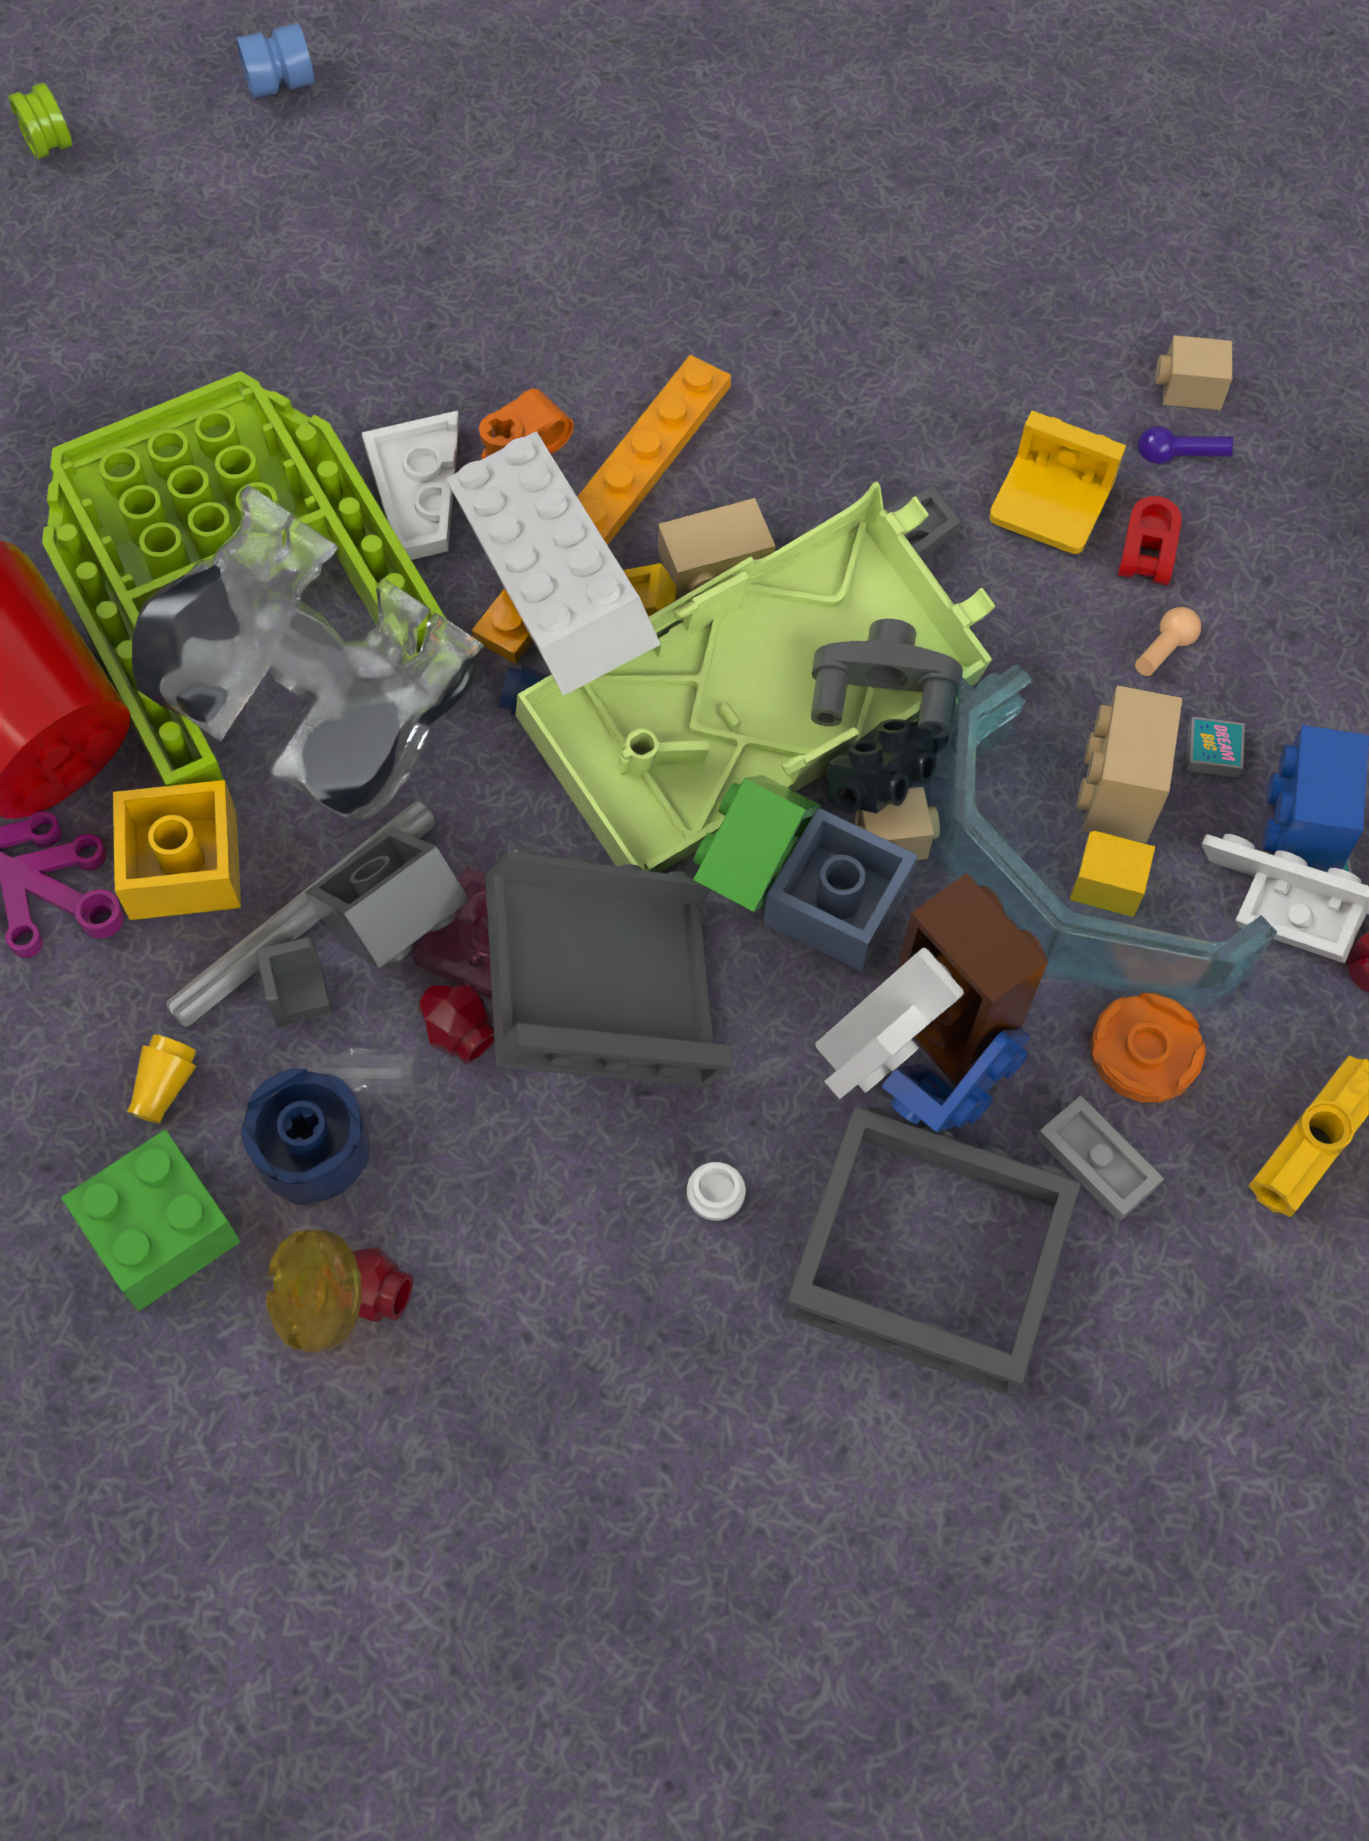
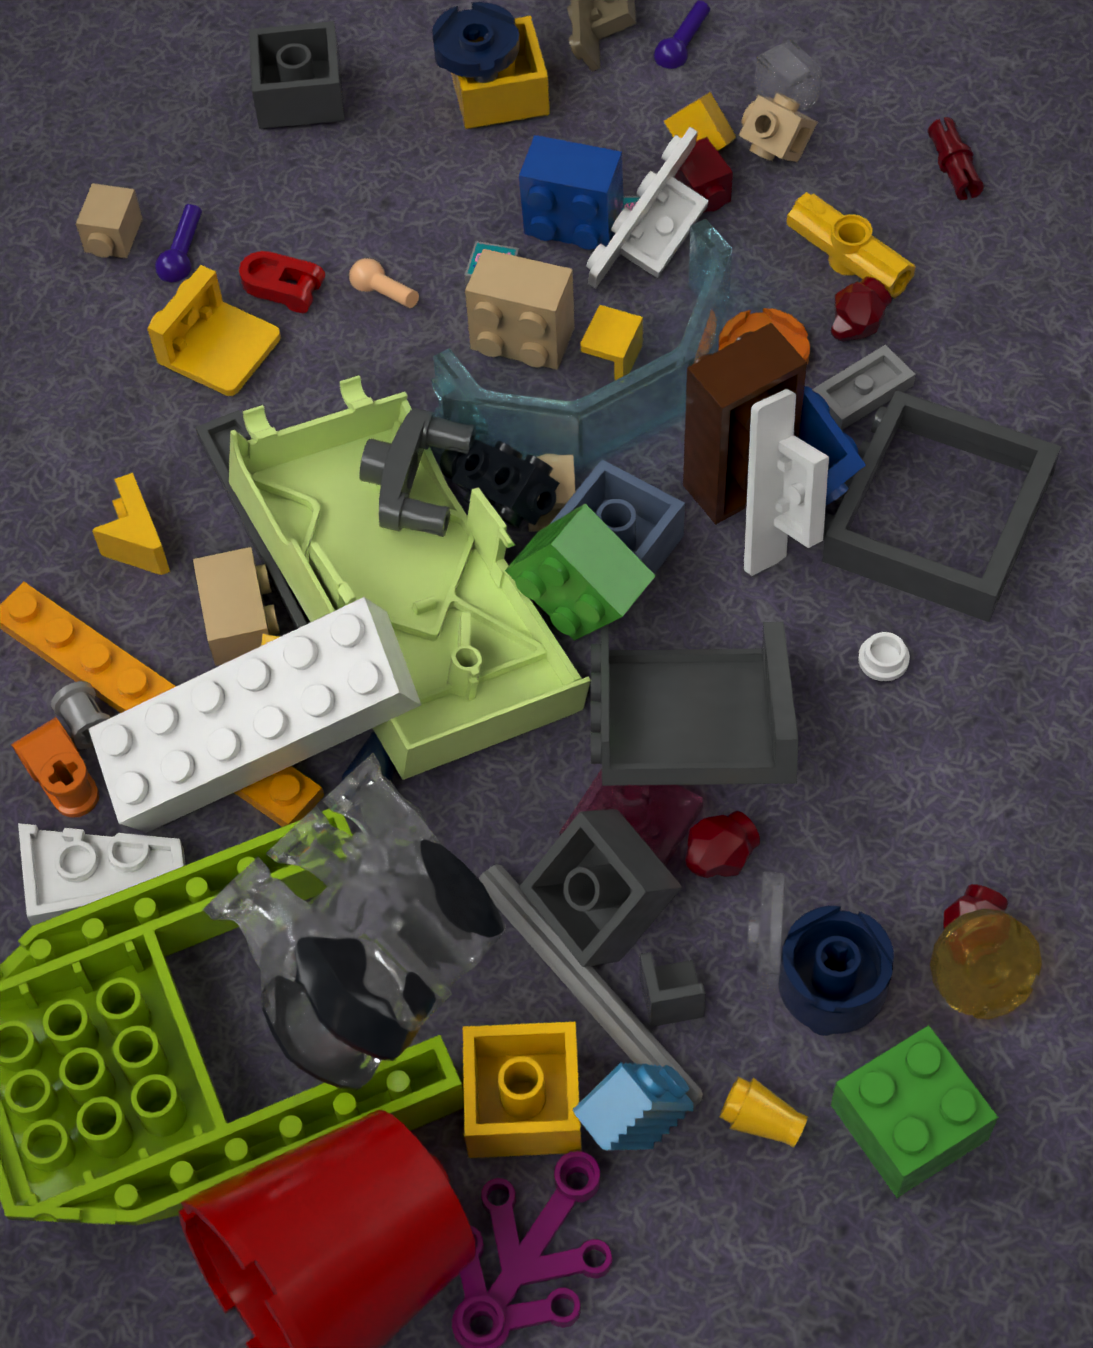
camera: 80 degrees left, 5 degrees down
(143, 942) = (634, 1106): none -> dark azure brick
(582, 444) = (79, 710): none -> light grey bush
(799, 459) = (133, 535): none -> yellow slope
(1215, 1148) = (860, 309): none -> dark red rock

